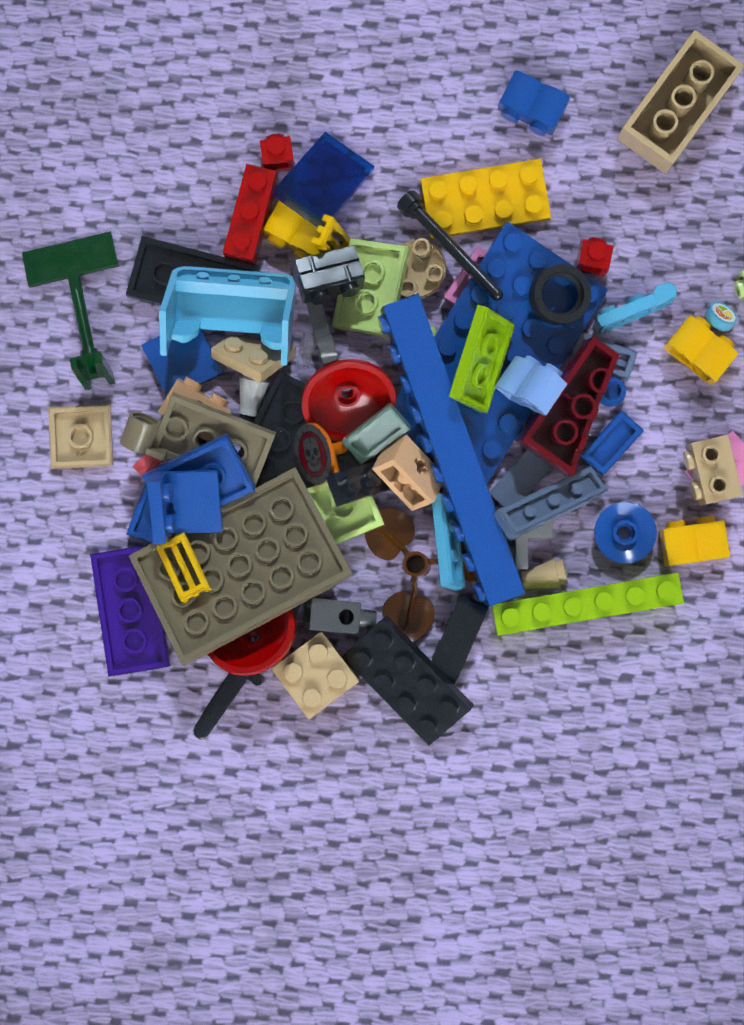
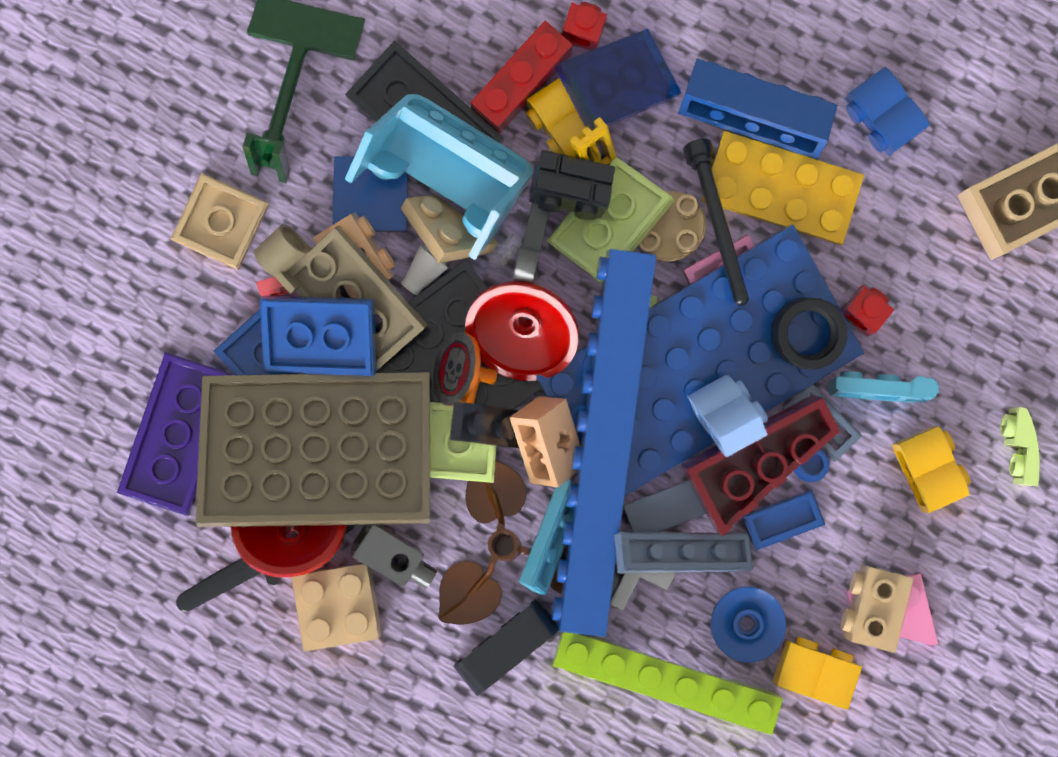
camera: 20 degrees right, 0 degrees up
(184, 503) = (288, 351): blue bracket -> none
(194, 590) = (251, 450): yellow tile -> none
(376, 434) = (534, 381): sand green tile -> none
(408, 680) = (432, 663): black plate -> none
(437, 149) = (758, 109): none -> blue brick
(482, 359) = (688, 360): lime tile -> none
(545, 576) = (639, 626): tan cone -> none
(720, 316) = (971, 444): tile -> none

